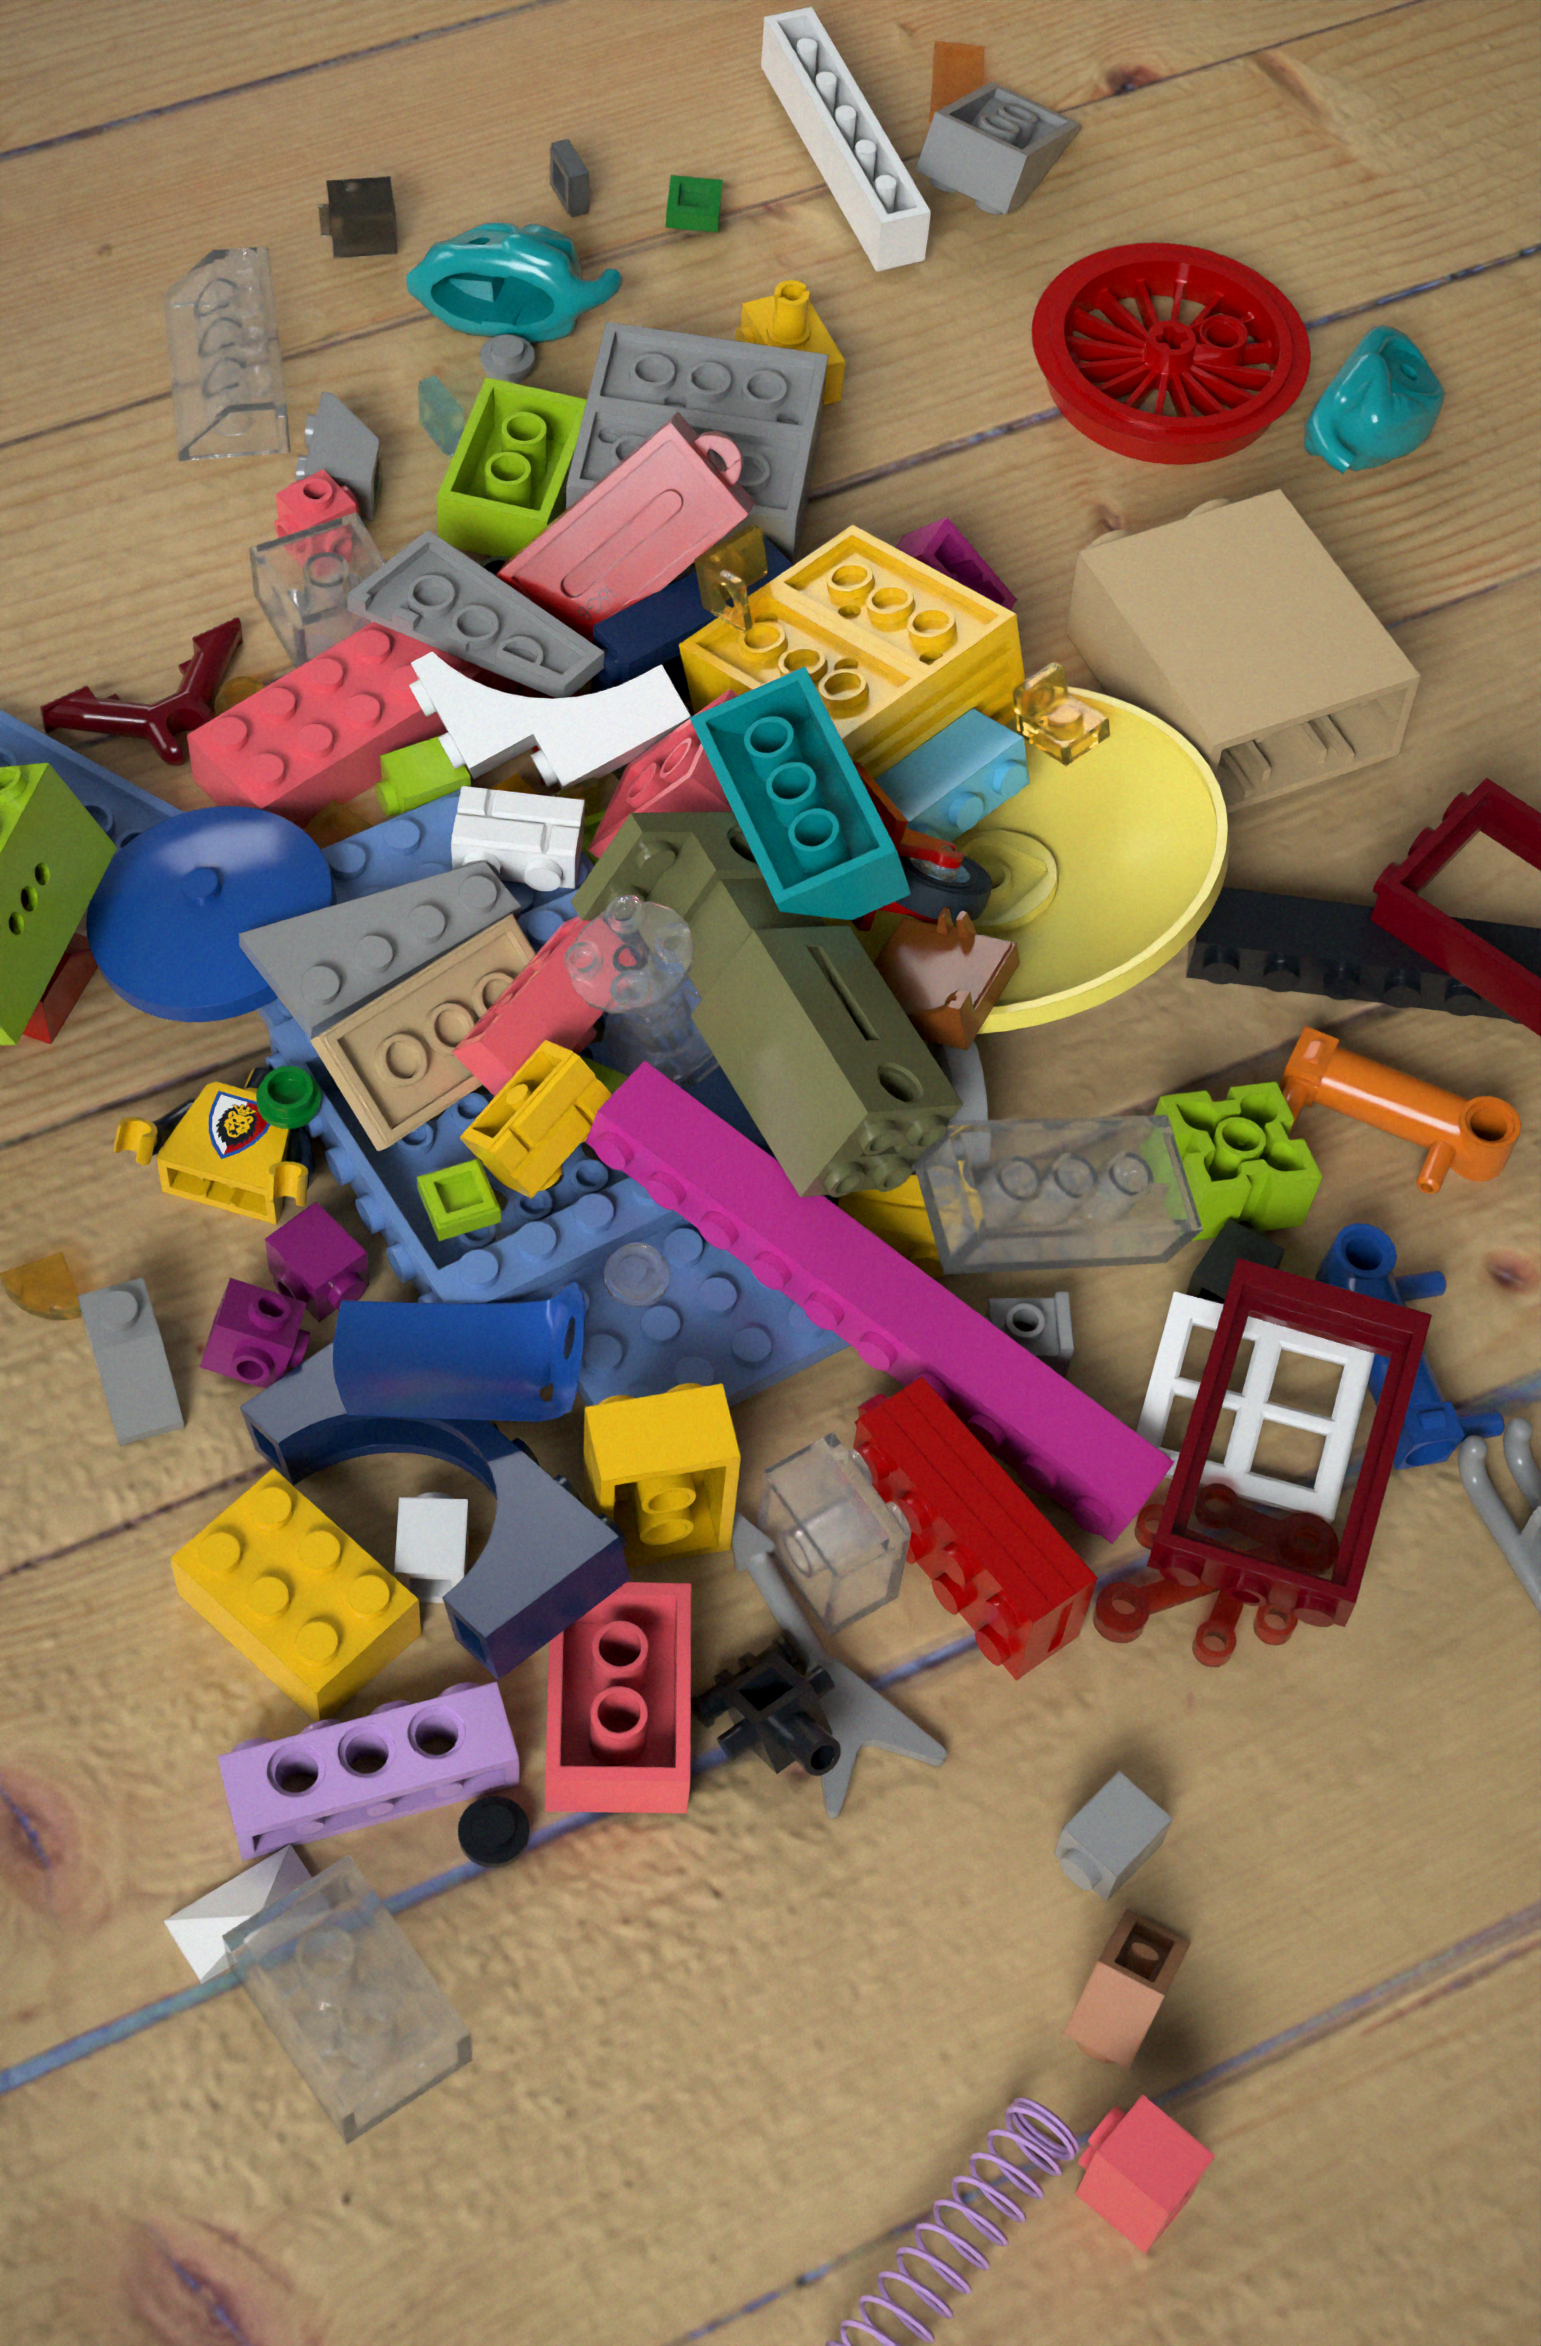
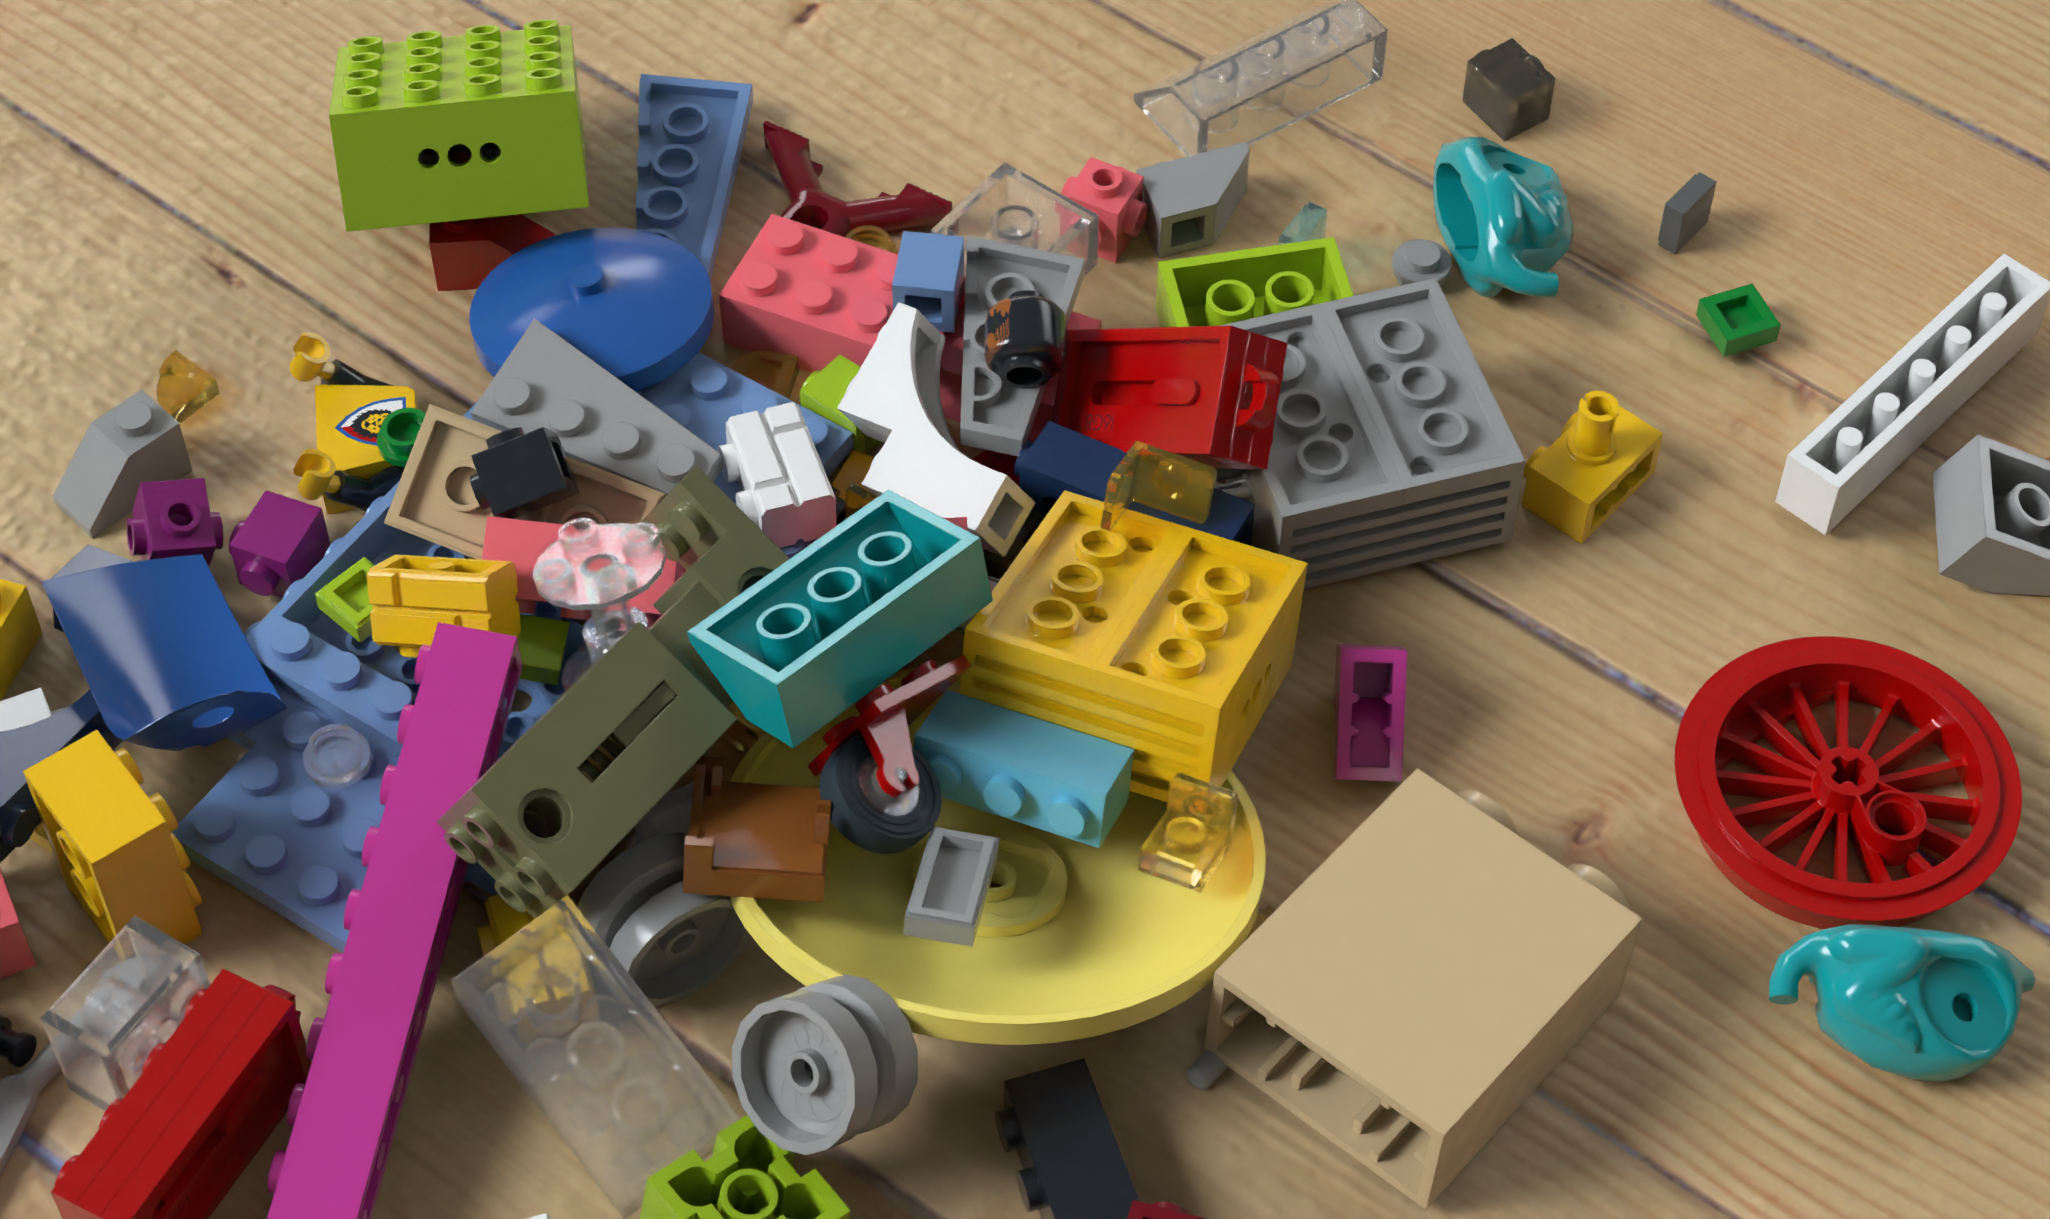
camera: 70 degrees right, 5 degrees down
(377, 642) = (930, 276): none -> medium blue brick
(446, 996) = (521, 472): none -> black brick
(517, 592) = (1025, 339): none -> black head
(1037, 1325) = (455, 1117): light grey brick -> none
(1047, 875) = (951, 886): none -> light grey tile
(1176, 1023) = (824, 1064): none -> light grey wheel

